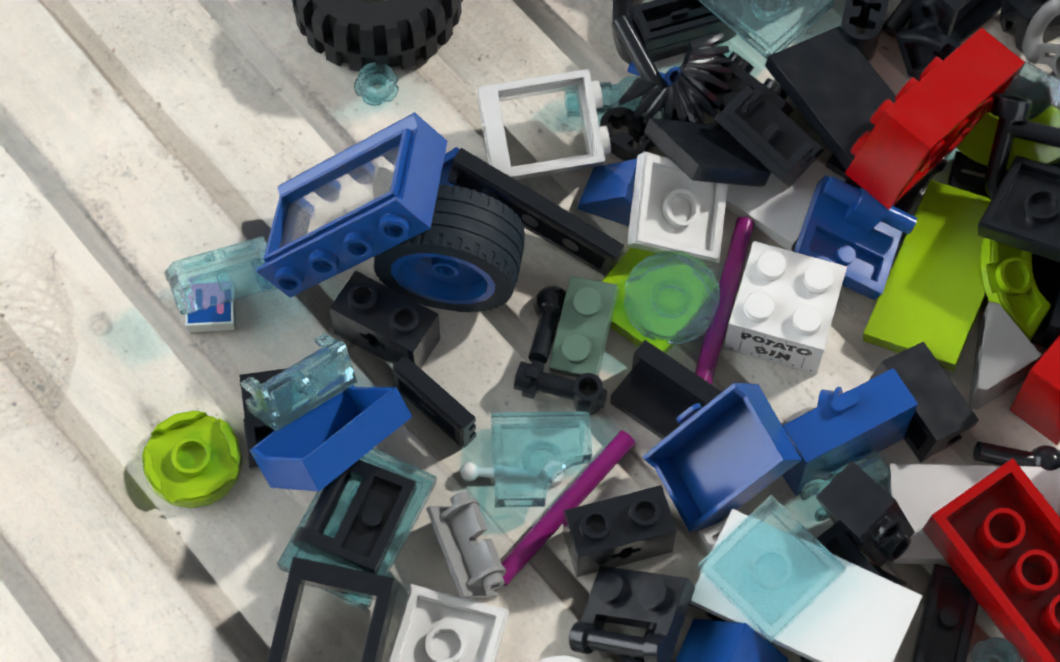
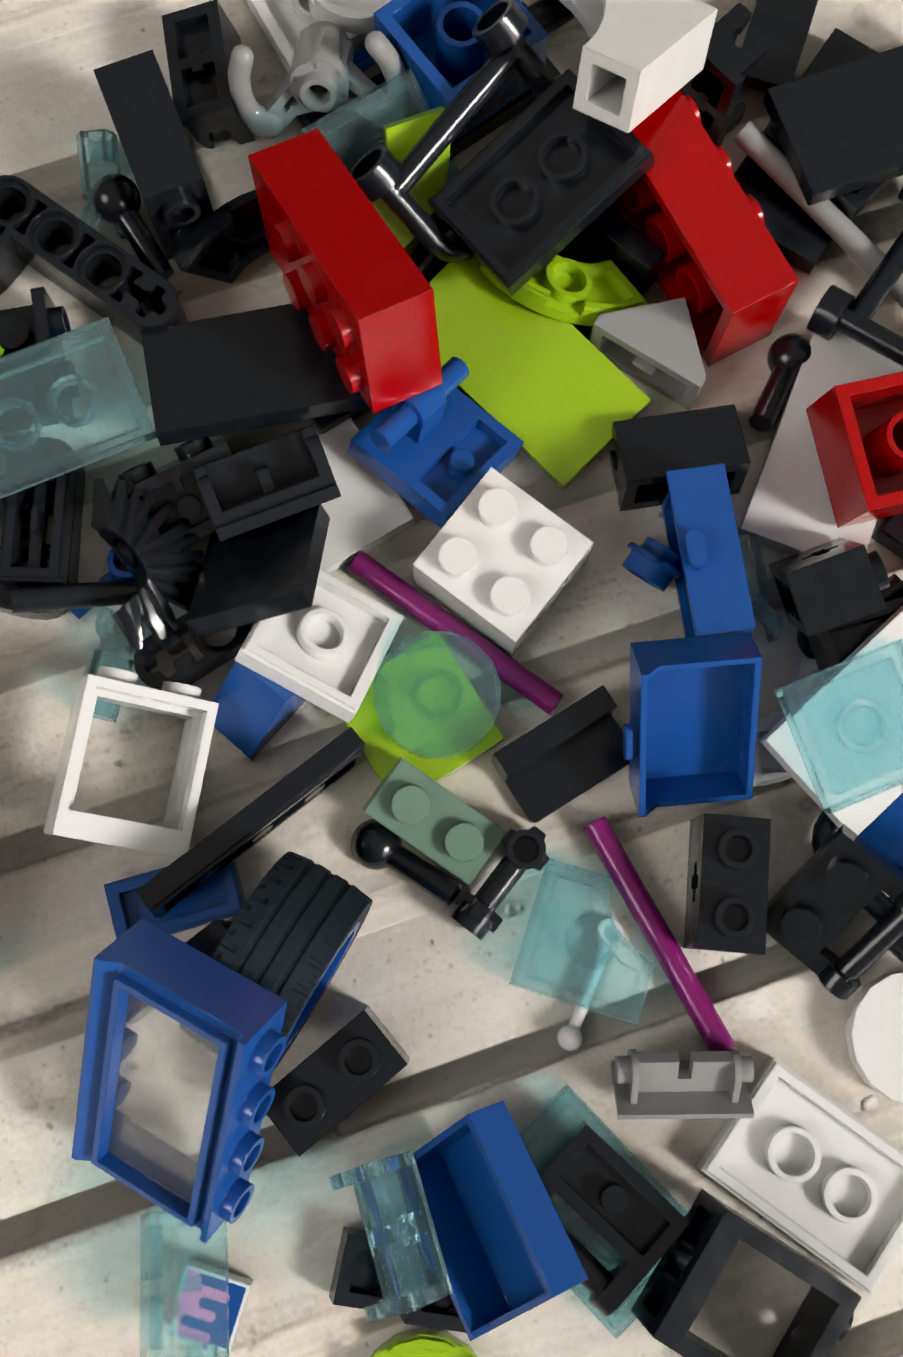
camera: 70 degrees left, 15 degrees up
(434, 402) = (467, 1053): black tile -> none

